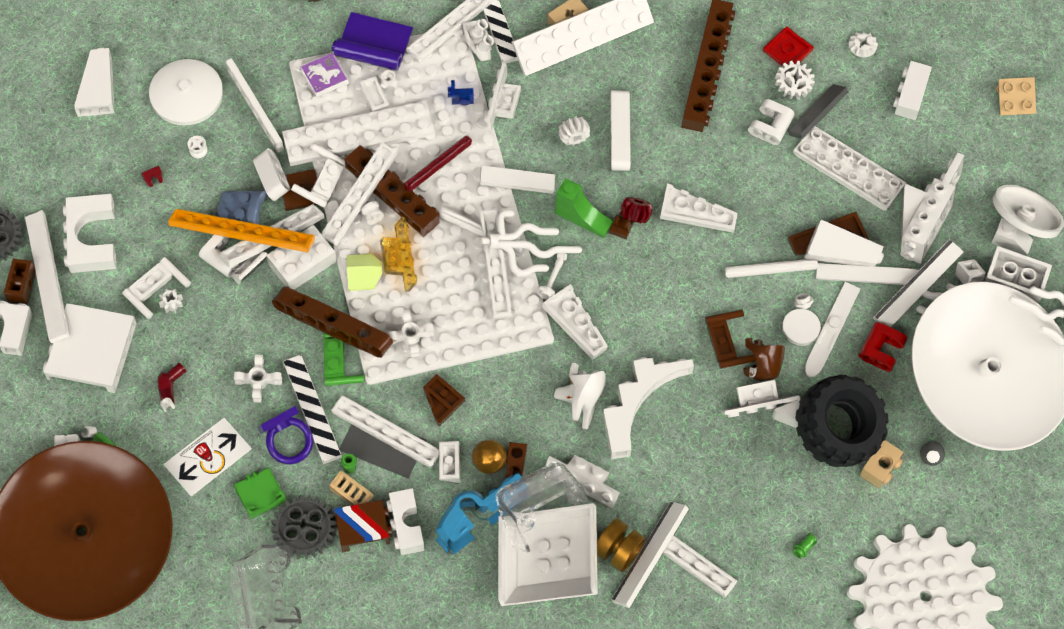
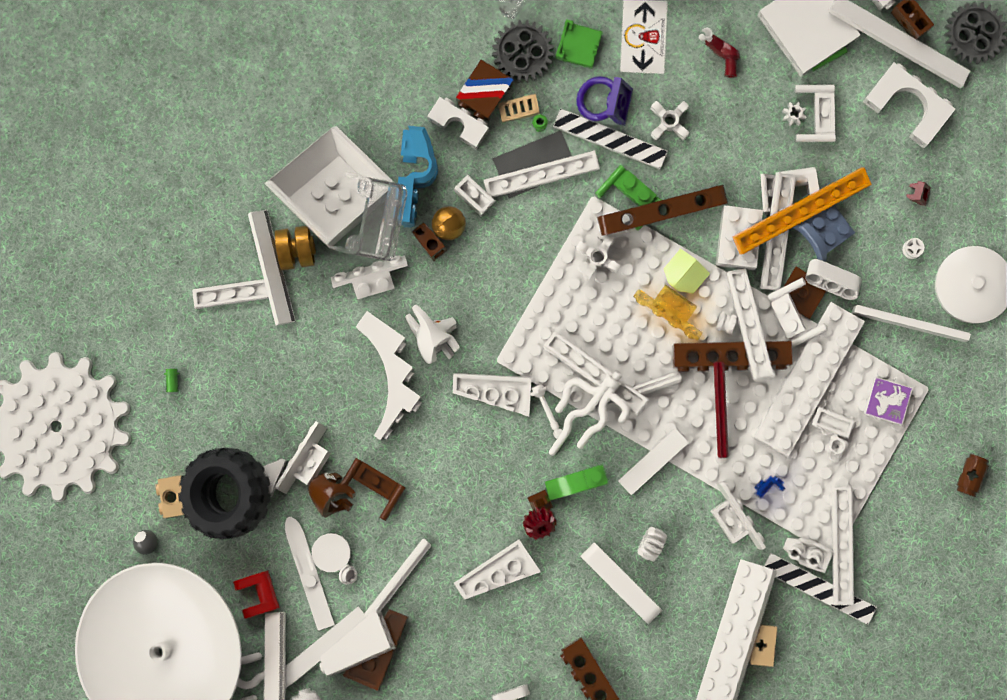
camera: 140 degrees right, 20 degrees up
(373, 41) = (883, 466): dark purple door -> none
(442, 399) = (528, 236): reddish brown wing -> none

